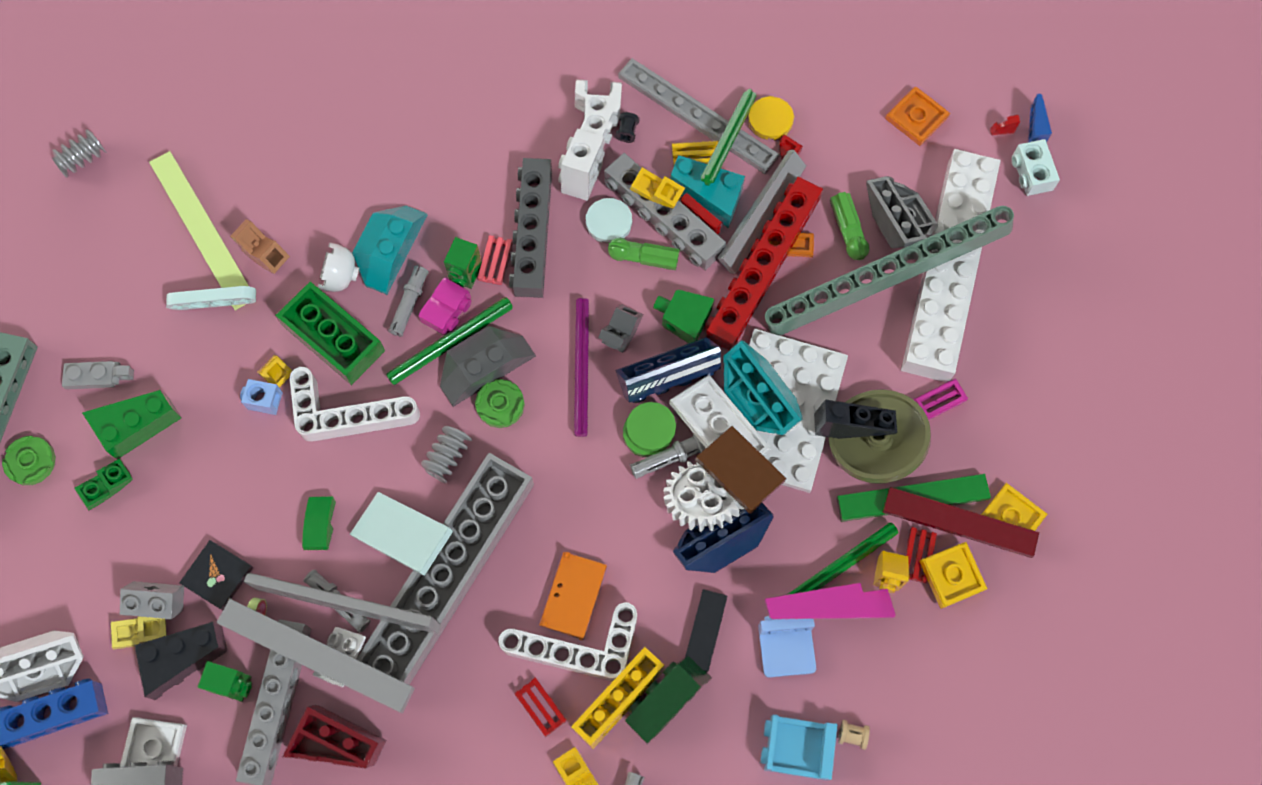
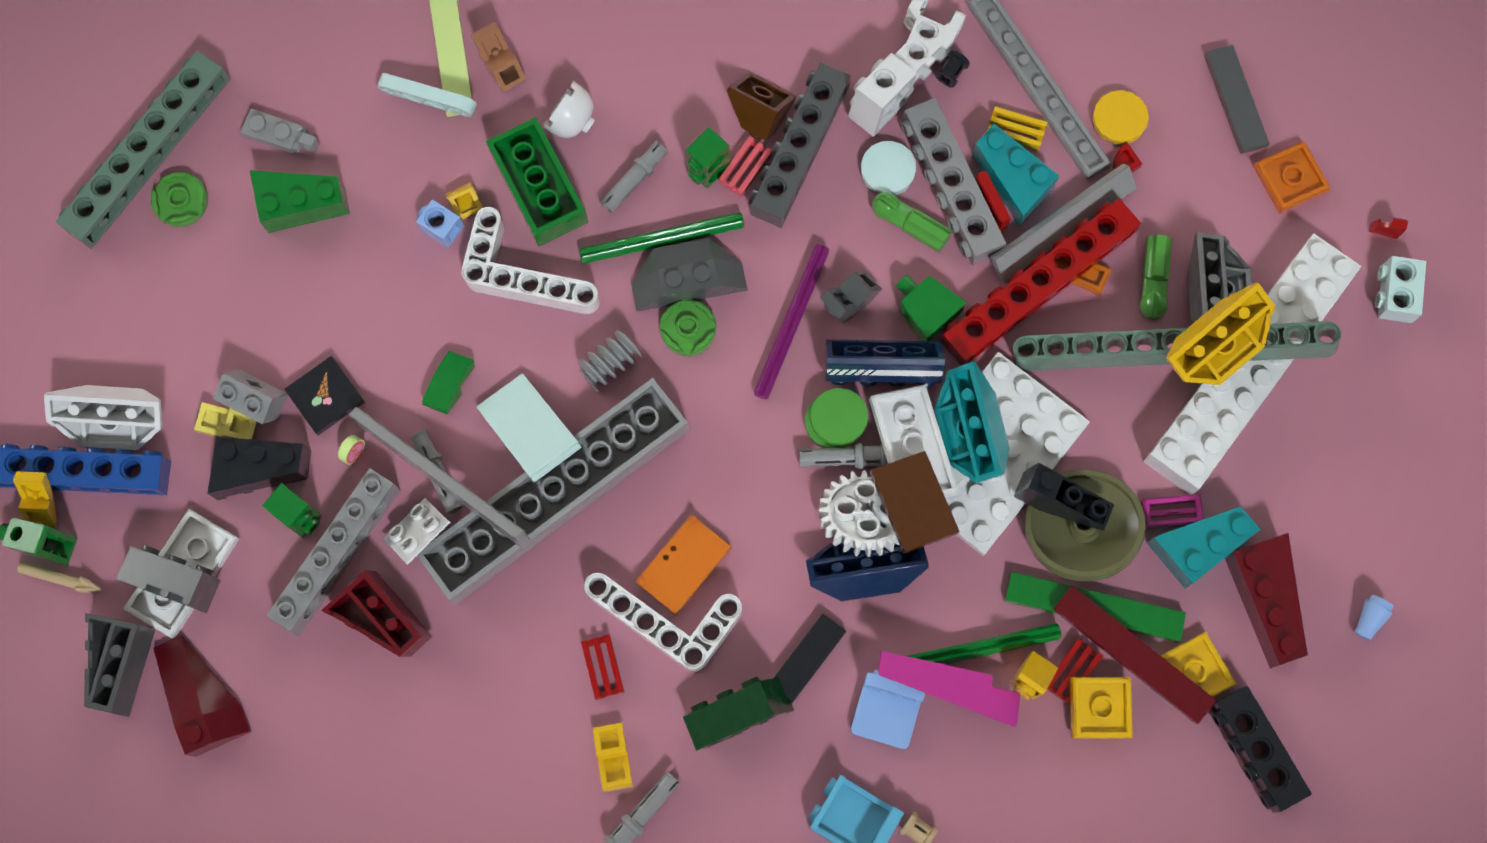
camera: 25 degrees right, 5 degrees up
(104, 485) = (245, 256): green slope -> none
(316, 656) = (392, 522): light grey tile -> none
(386, 245) = (634, 105): teal wedge -> none
(445, 306) = (671, 198): dark pink brick -> none
(487, 208) = (759, 105): none -> reddish brown slope
(618, 698) = (685, 691): yellow brick -> none
(658, 190) = (953, 154): yellow slope -> none
(728, 137) = (1059, 123): axle -> none
(852, 74) = (1236, 99): none -> dark grey tile
(927, 246) = (1223, 337): none -> yellow wedge
(975, 416) = (1203, 544): none -> teal wedge
(1039, 123) = (1429, 240): blue slope -> none
(1044, 436) = (1271, 598): none -> dark red wedge
(1124, 575) = (1291, 784): none -> black brick
(1126, 419) = (1373, 616): none -> light blue cone

